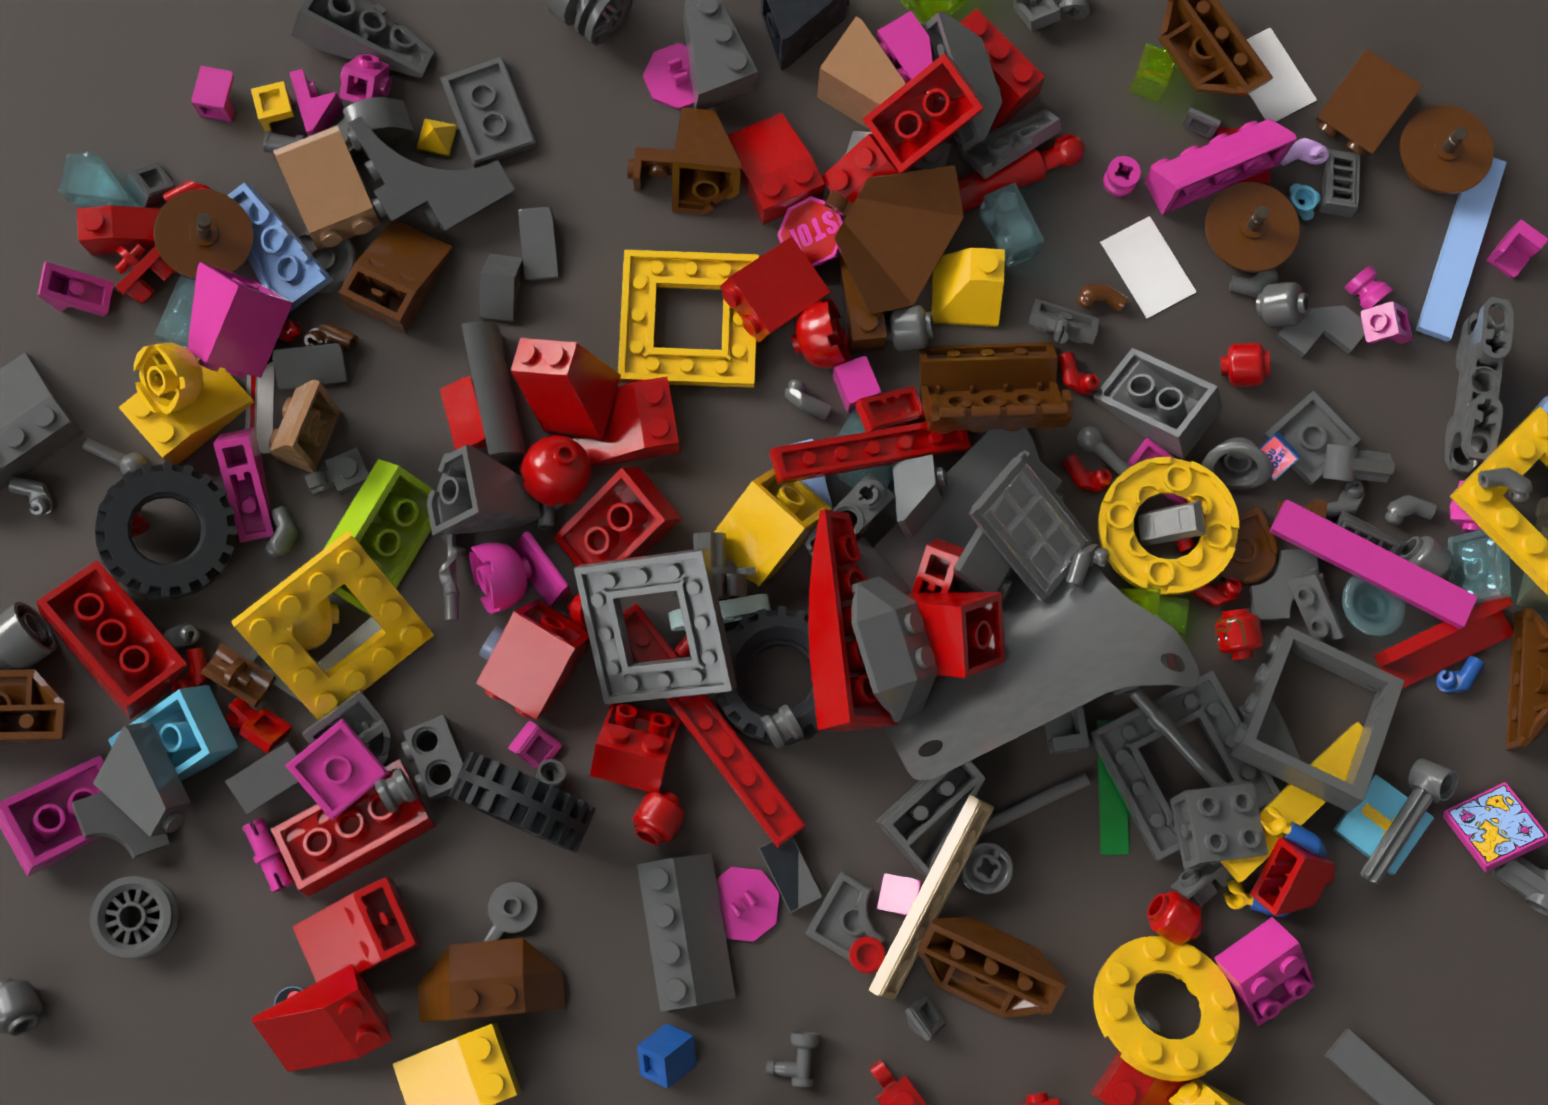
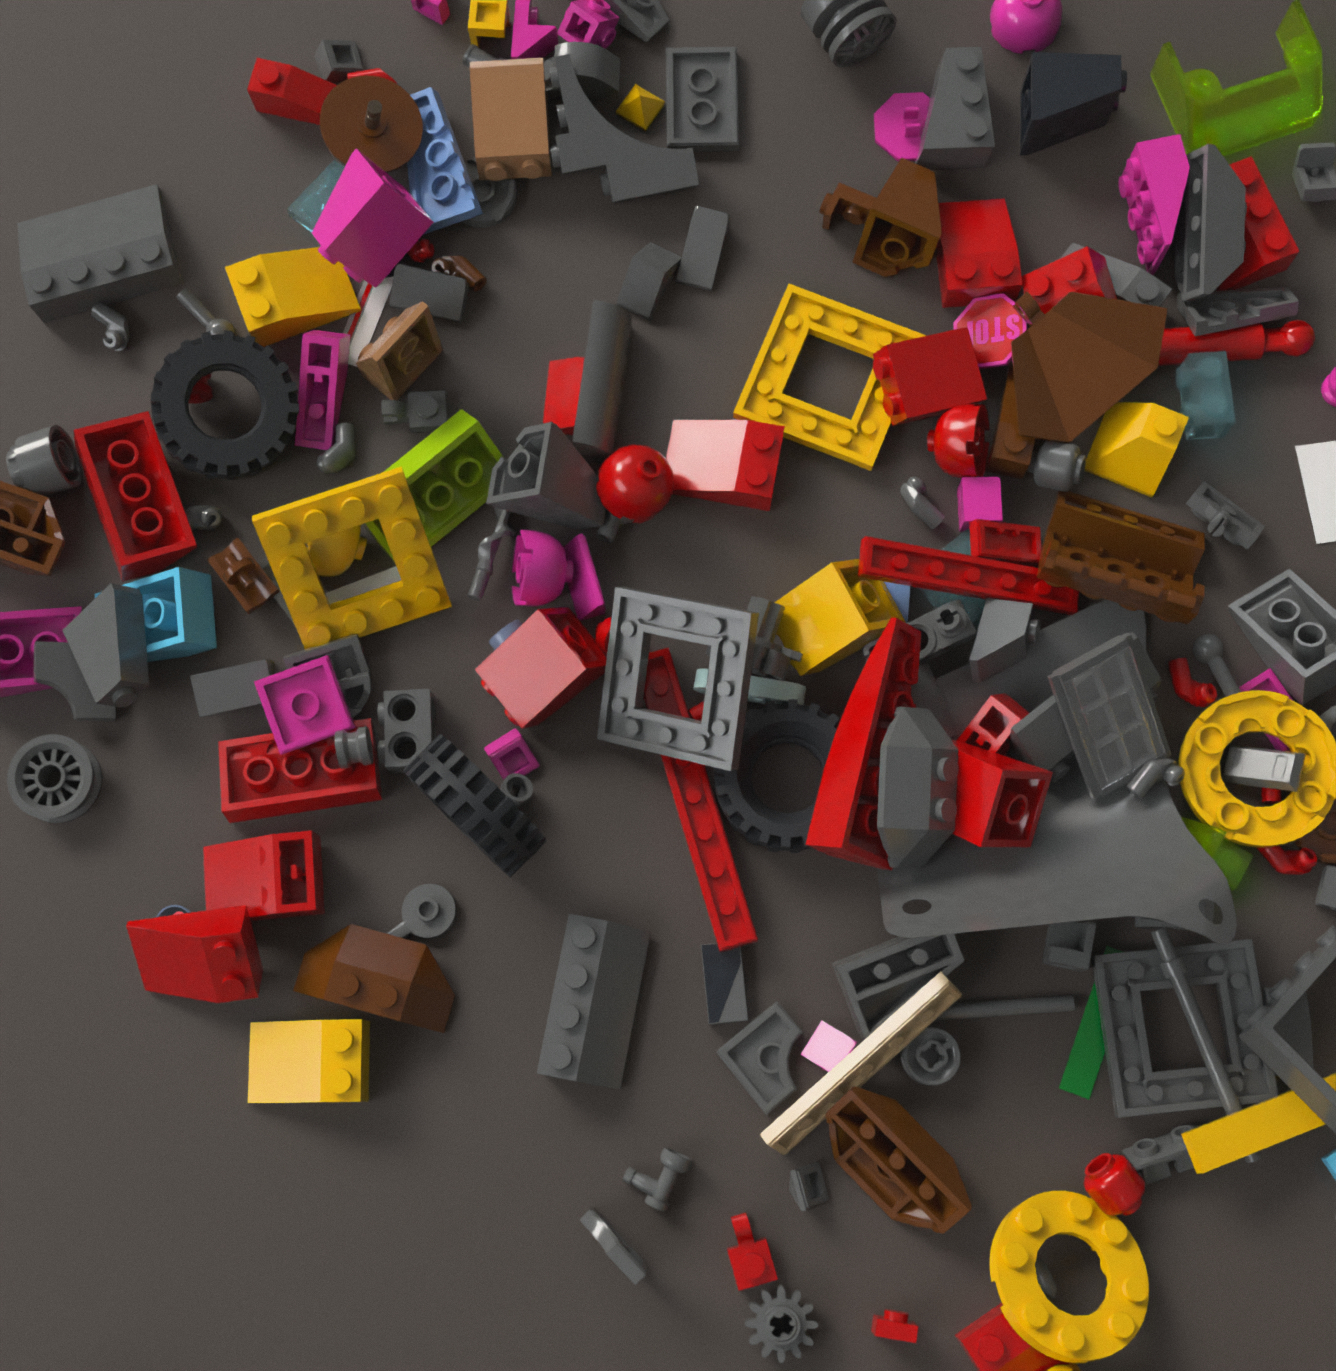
camera: 30 degrees right, 0 degrees up
(74, 289) = (225, 136): dark pink slope -> none
(91, 183) = (282, 38): clear light blue slope -> none
(133, 282) = (286, 149): red hips -> none
(168, 377) = (283, 252): yellow cylinder -> none
(193, 678) = (208, 547): red arm -> none
(260, 727) = (244, 635): red plate -> none
(267, 855) = (205, 766): dark pink pin -> none
(395, 275) = (546, 231): reddish brown slope -> none
(565, 386) = (676, 400): red slope -> none
(618, 520) = (682, 556): red slope -> none
(634, 747) = (611, 794): red slope -> none
(658, 818) = (609, 875): red head -> none
(666, 1055) = (527, 1121): blue panel -> none
(747, 903) = (668, 997): dark pink piece -> none
(782, 726) = (769, 827): dark grey wheel -> none
(857, 74) = (1101, 192): medium nougat slope -> none
(867, 954) = (772, 1097): red tile -> none
(924, 113) = (1154, 241): red slope -> none
(1074, 379) = (1214, 580): red arm -> none
(1101, 292) = (1278, 500): reddish brown arm -> none
(1218, 825) = (1197, 1104): dark grey bracket -> none
(1239, 633) = (1295, 910): red head -> none
(1266, 971) = (1192, 1279): dark pink slope -> none
(1291, 875) = (1258, 1187): red torso -> none

